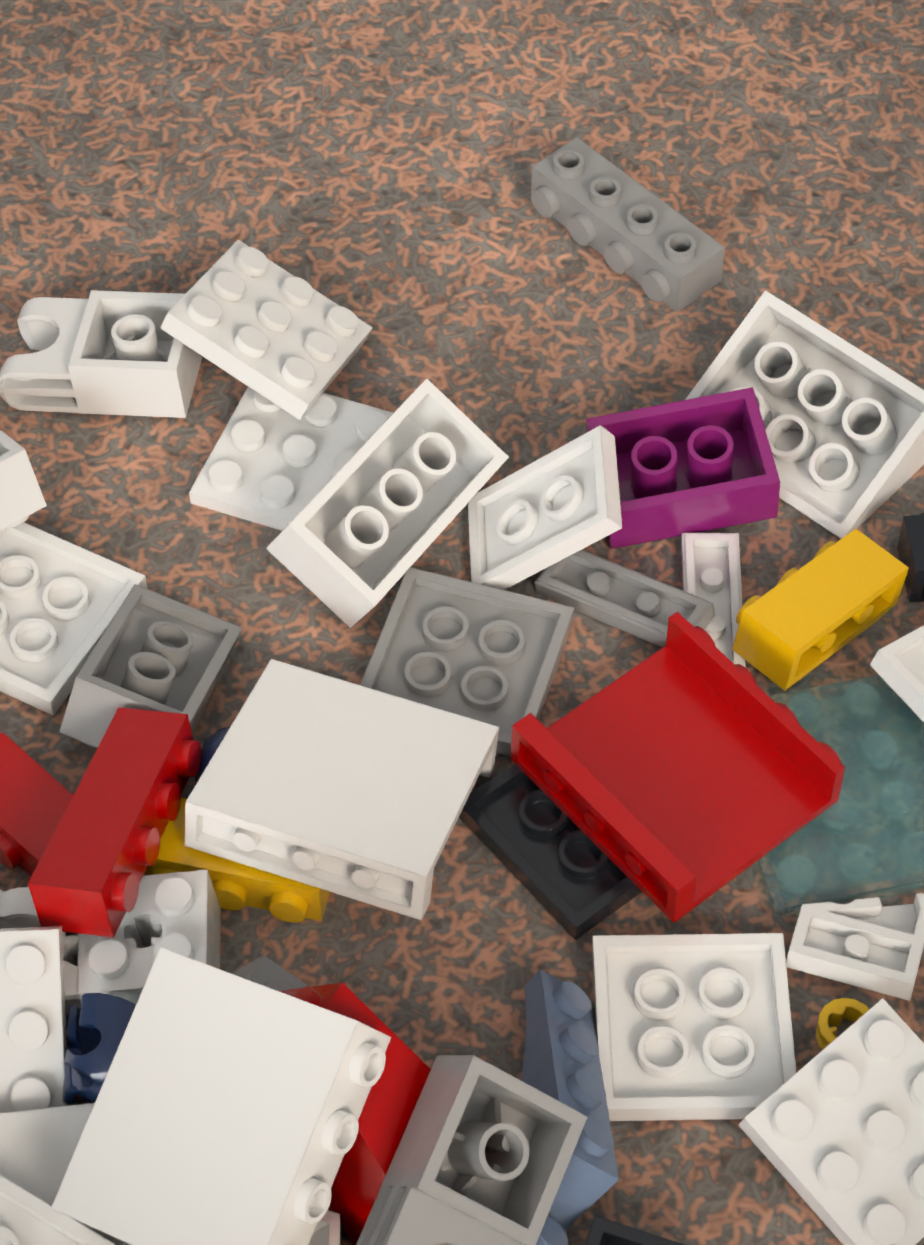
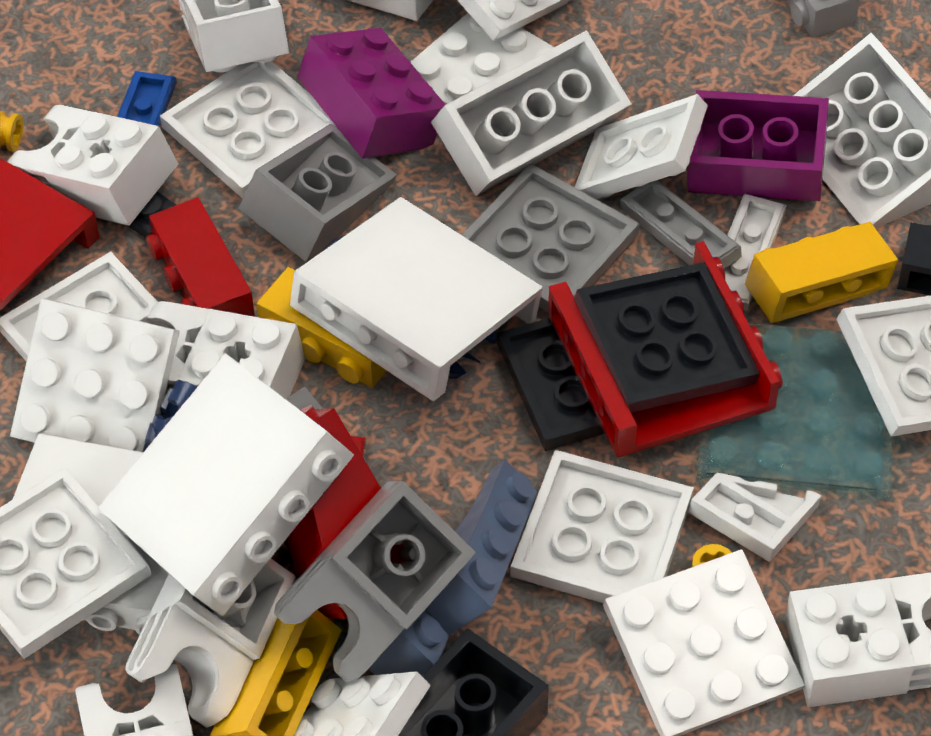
camera: 20 degrees right, 0 degrees up
(115, 822) = (243, 273): red brick -> none
(171, 528) = (370, 92): none -> magenta brick
(682, 748) = (667, 336): none -> black plate

